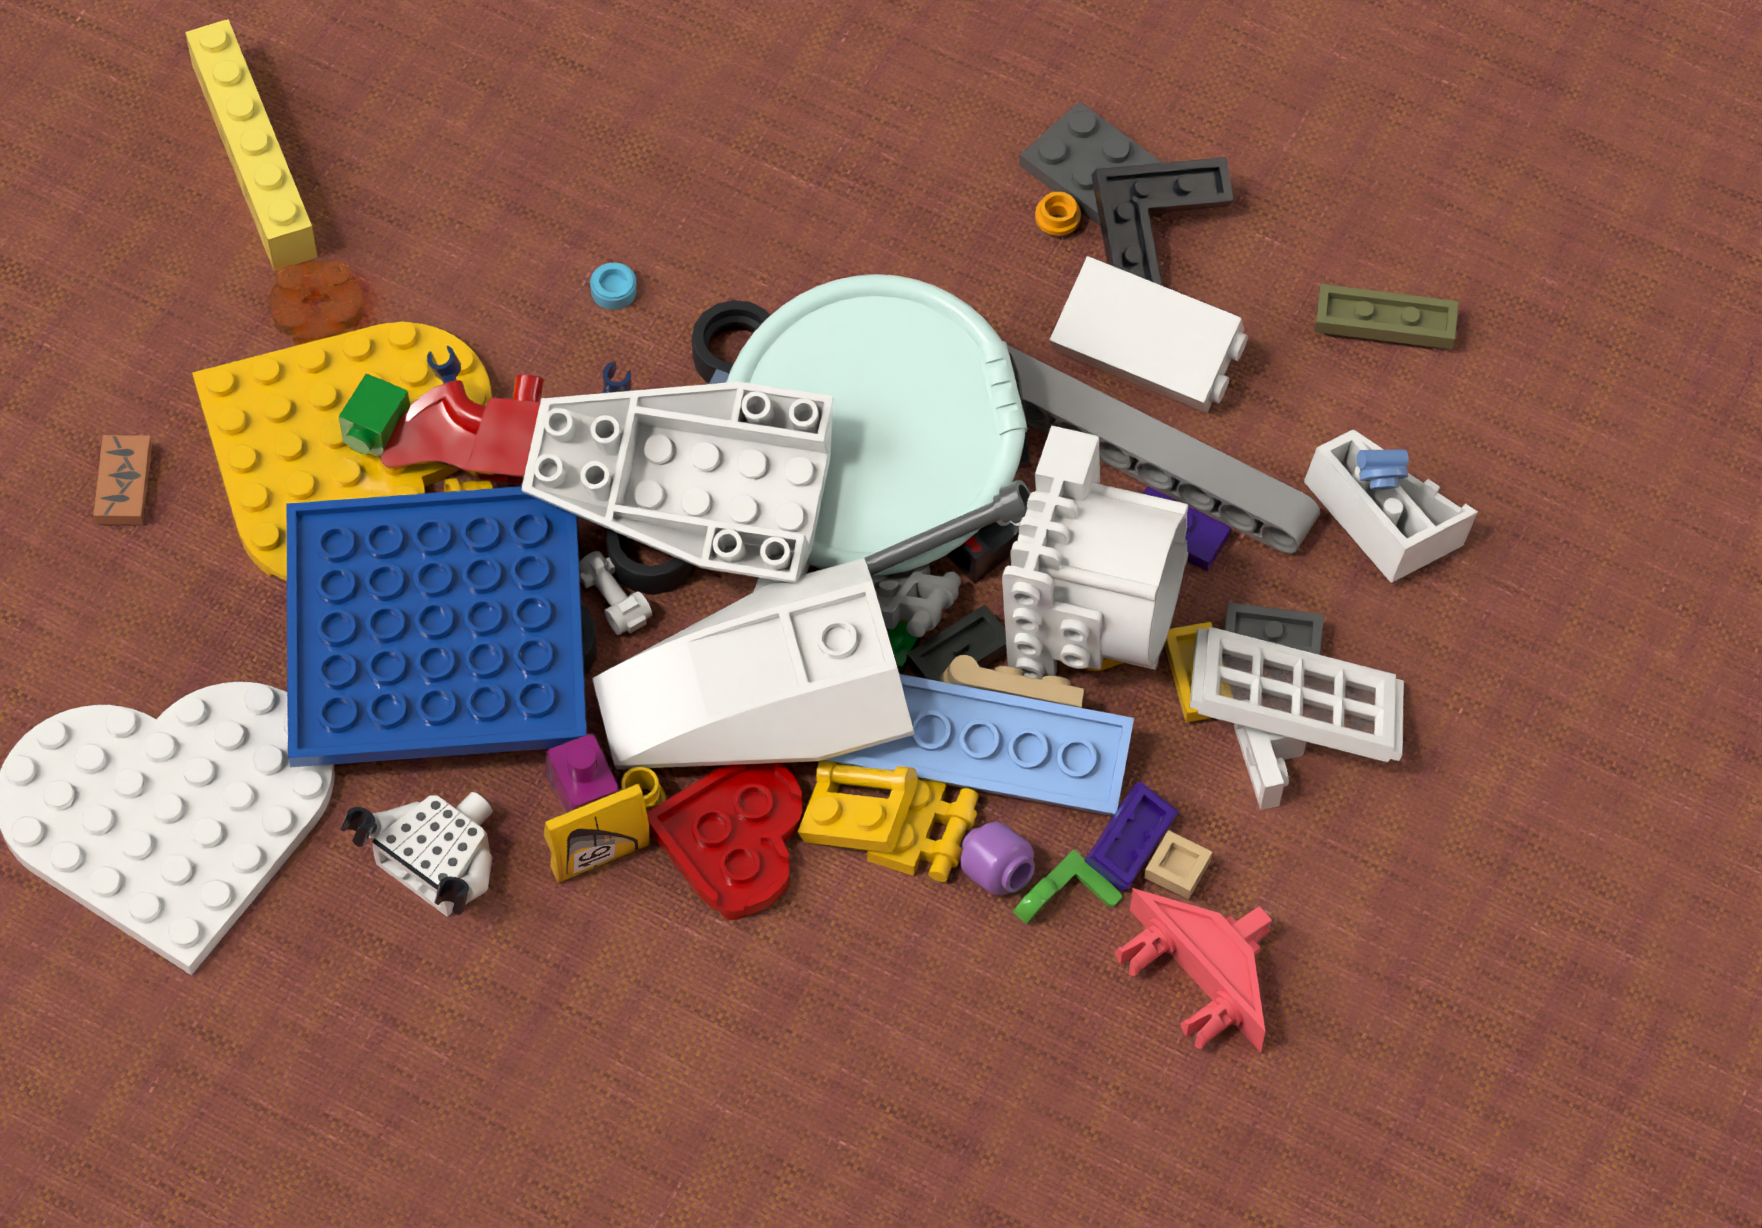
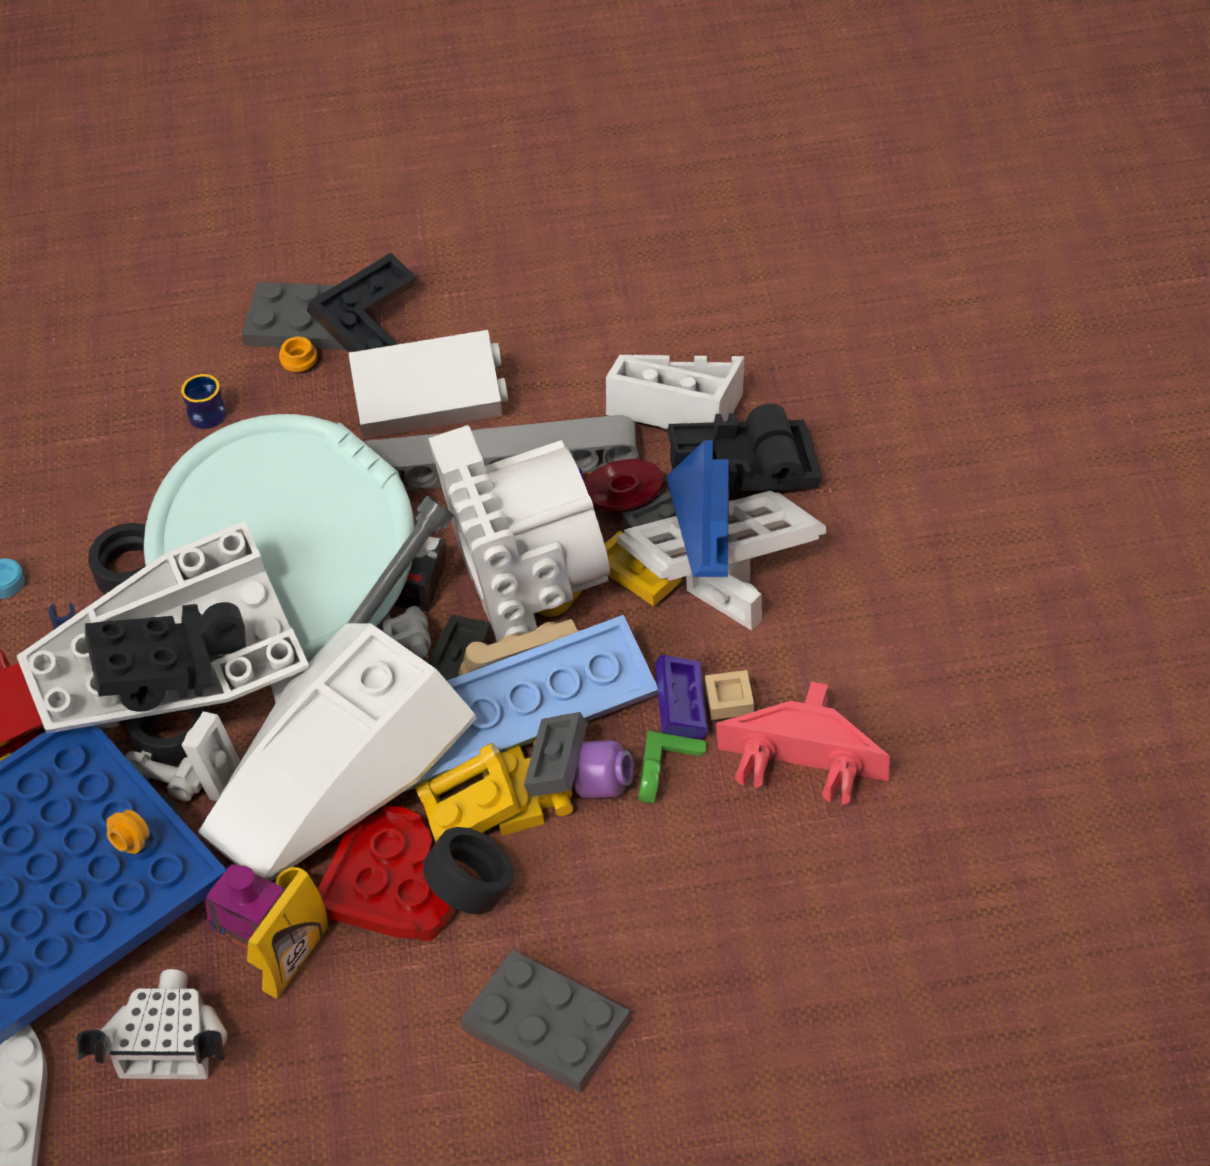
camera: 30 degrees left, 10 degrees down
(522, 640) = (127, 831): none -> light orange plate
(657, 607) = (211, 754): none -> white plate
(661, 484) = (156, 655): none -> black plate
(768, 1066) = (546, 1020): none -> dark grey plate
(772, 891) = (457, 886): none -> black tyre
(927, 211) = (203, 401): none -> clear blue wheel
(961, 819) = (555, 754): none -> dark grey plate
(1254, 573) = (624, 484): none -> dark red dish
(1296, 657) = (702, 509): none -> blue wedge
(1383, 467) = (664, 359): medium blue plate -> none
(1386, 316) = (575, 289): olive plate -> none
(1407, 625) = (761, 452): none -> black plate

